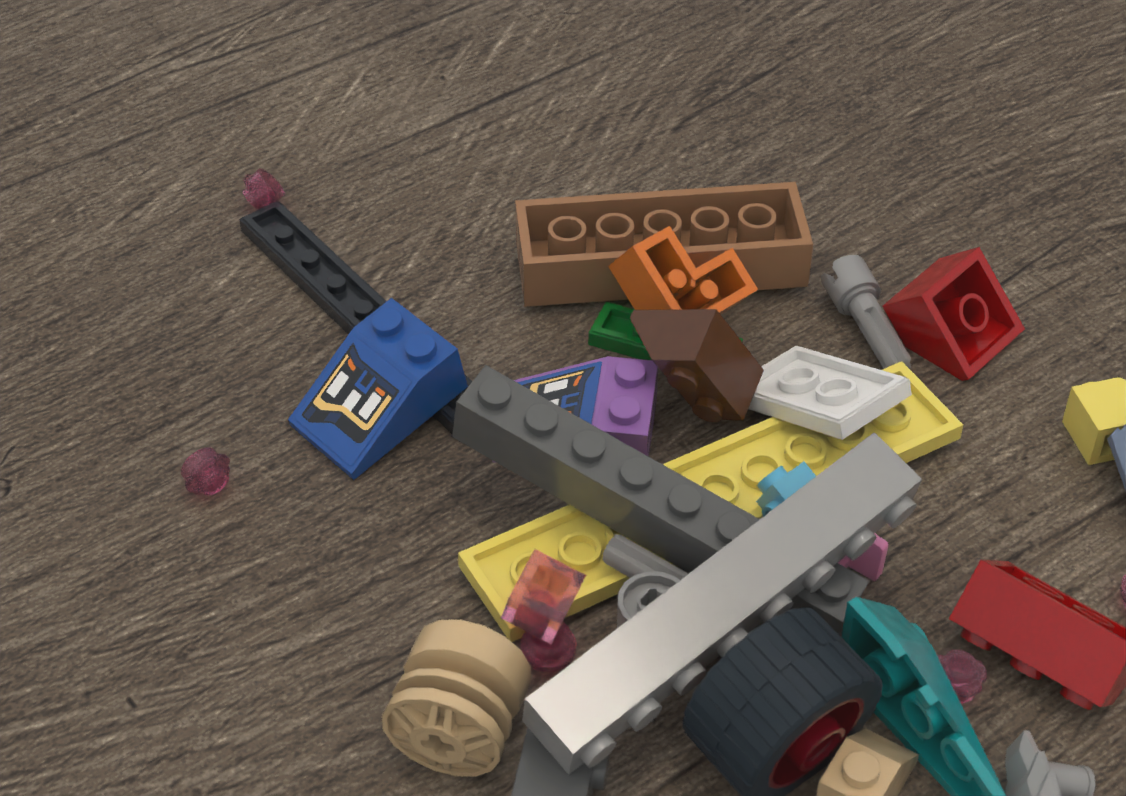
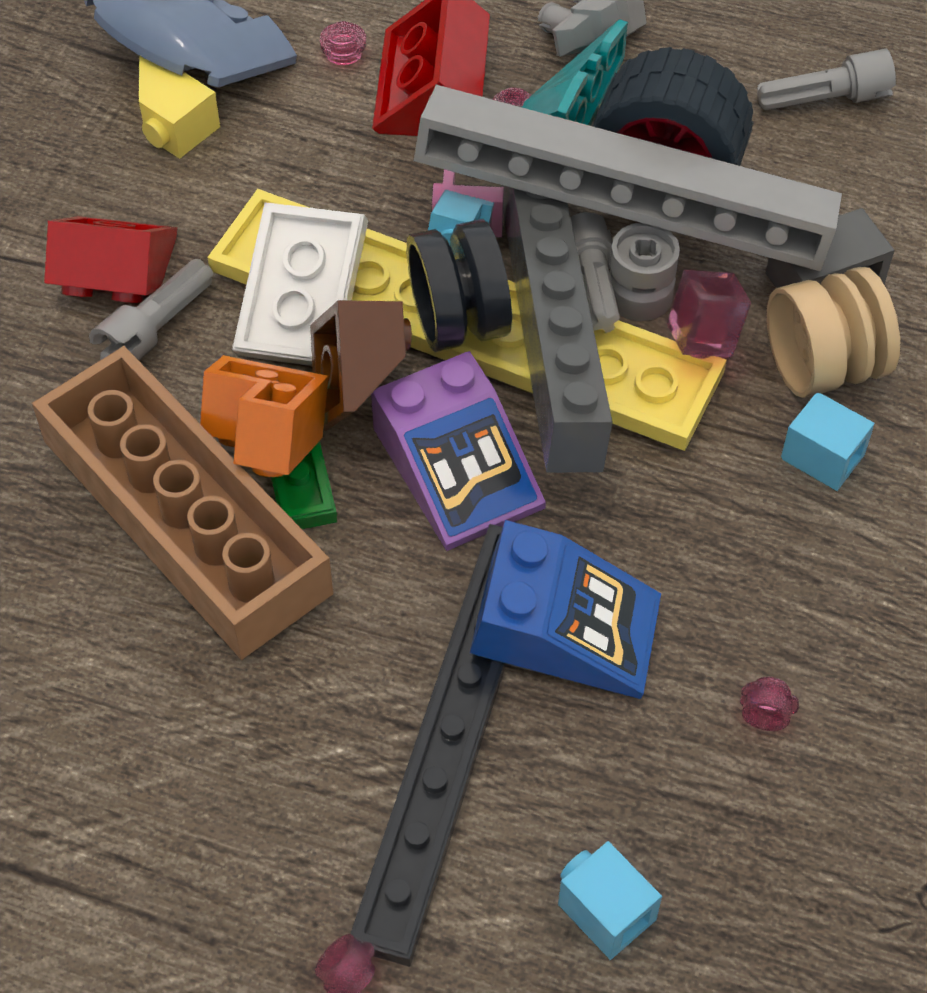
camera: 125 degrees left, 10 degrees up
(172, 310) = (608, 898): none -> medium azure brick
(365, 639) = (827, 440): none -> medium azure panel
(709, 430) = (459, 285): none -> black wheel

